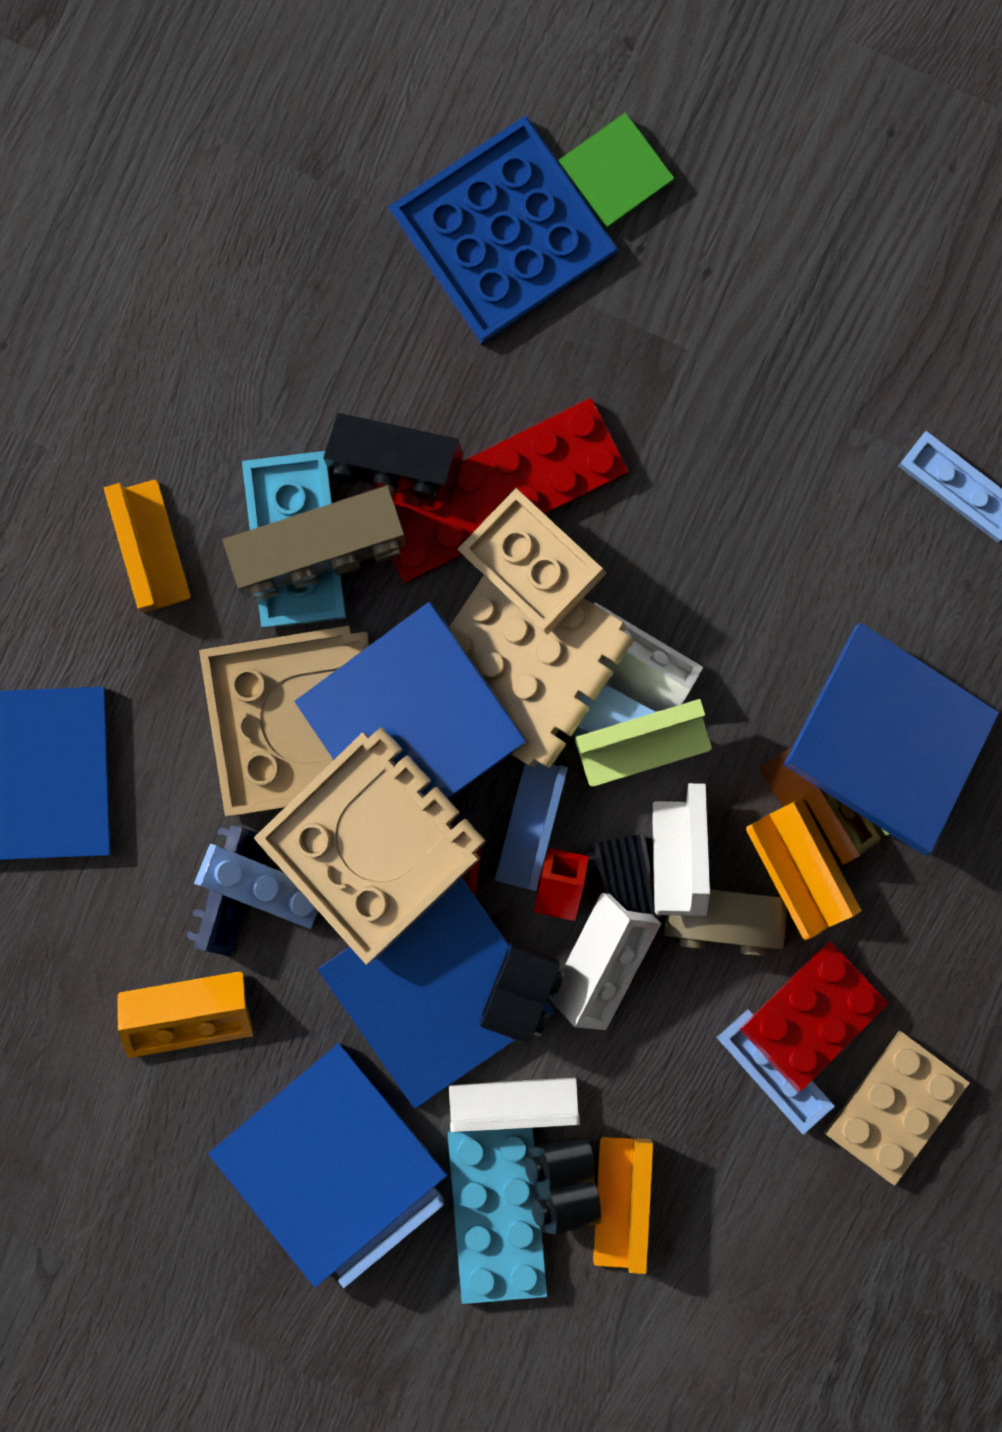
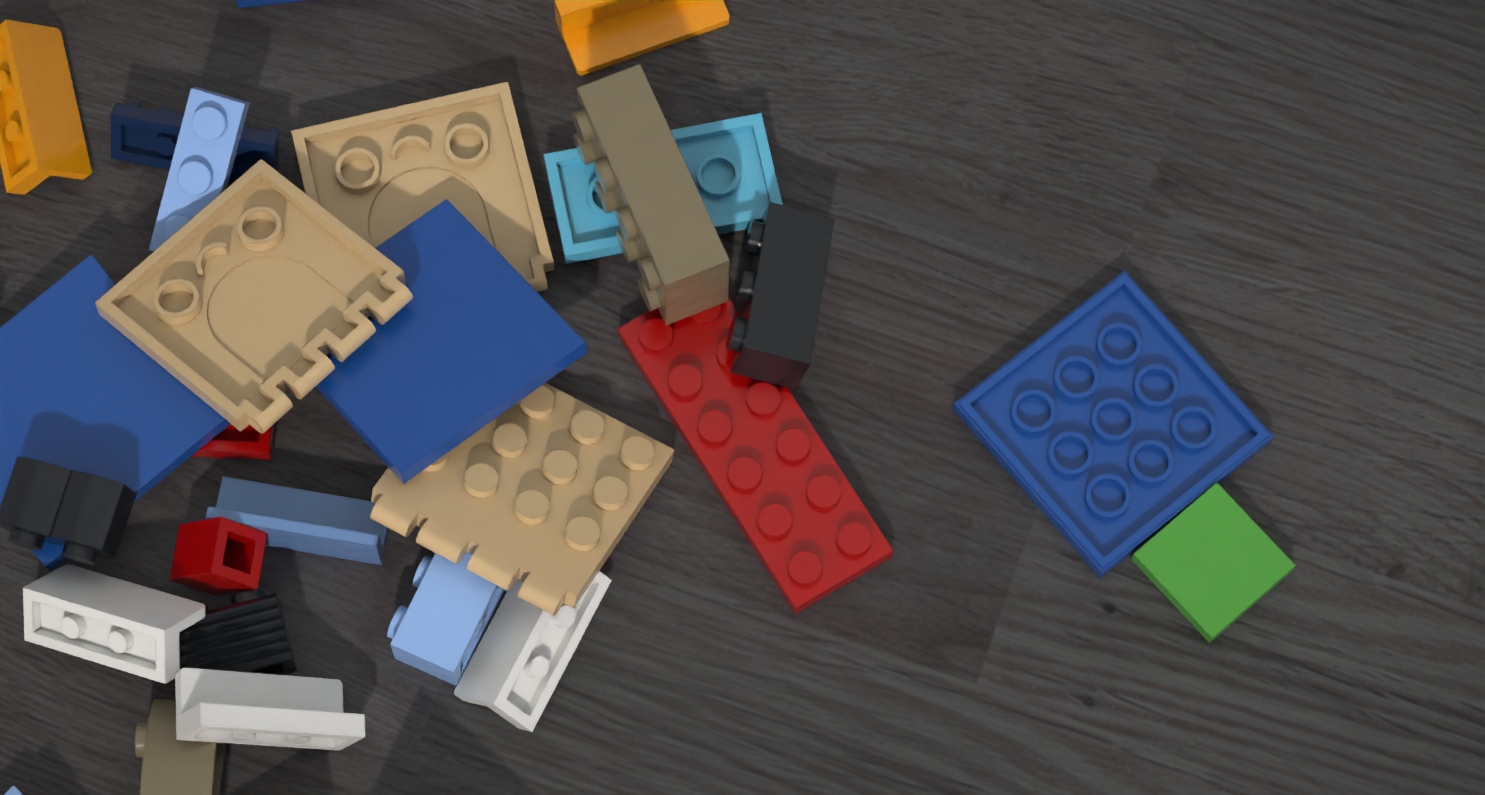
camera: 85 degrees right, 15 degrees down
(532, 561) = (652, 474): tan plate -> none
(643, 743) = (413, 642): yellowish green panel -> none

